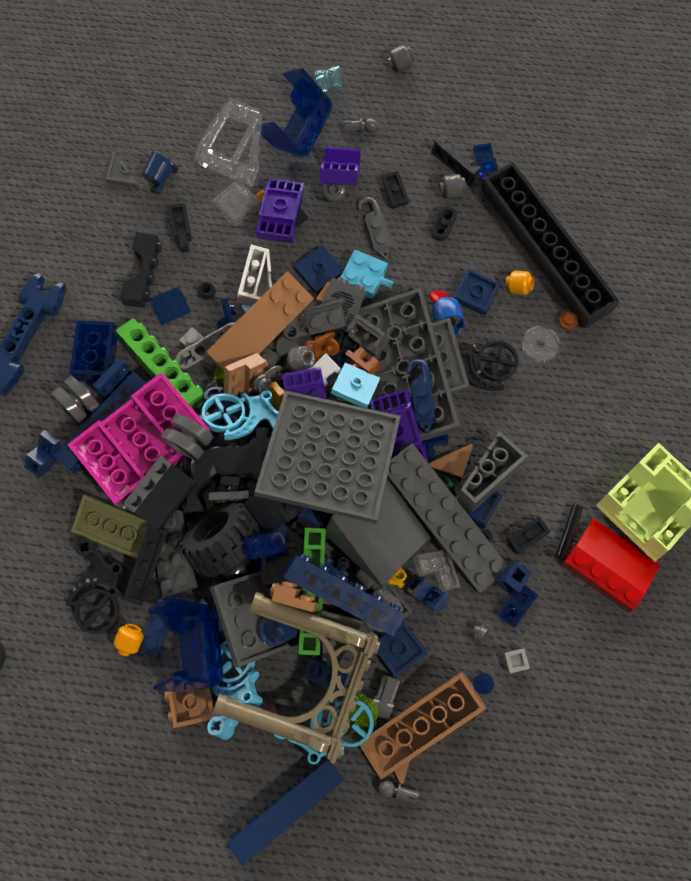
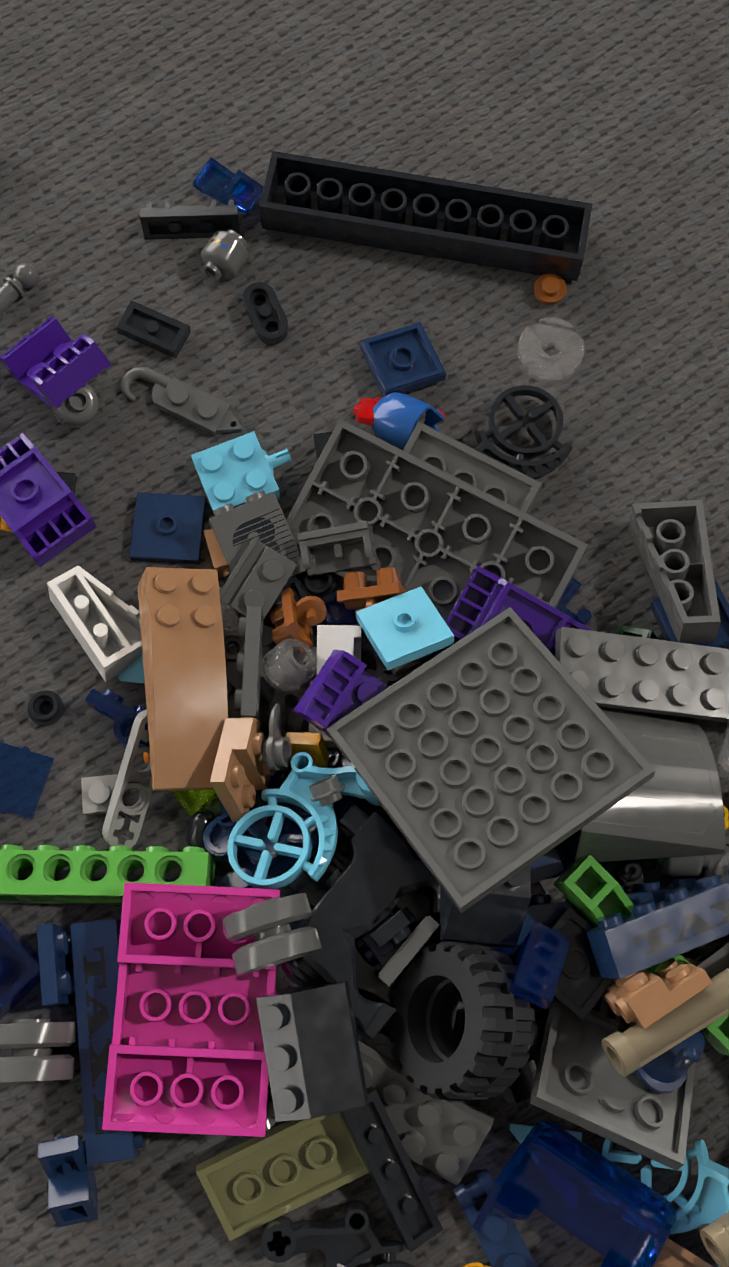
camera: 50 degrees left, 0 degrees up
(262, 412) = (327, 790): none -> dark grey plate
(276, 354) = (250, 662): none -> dark grey plate
(423, 396) = (499, 553): dark blue plate -> none
(453, 463) = (616, 600): medium nougat tile -> none
(520, 282) = (443, 297): light orange head -> none

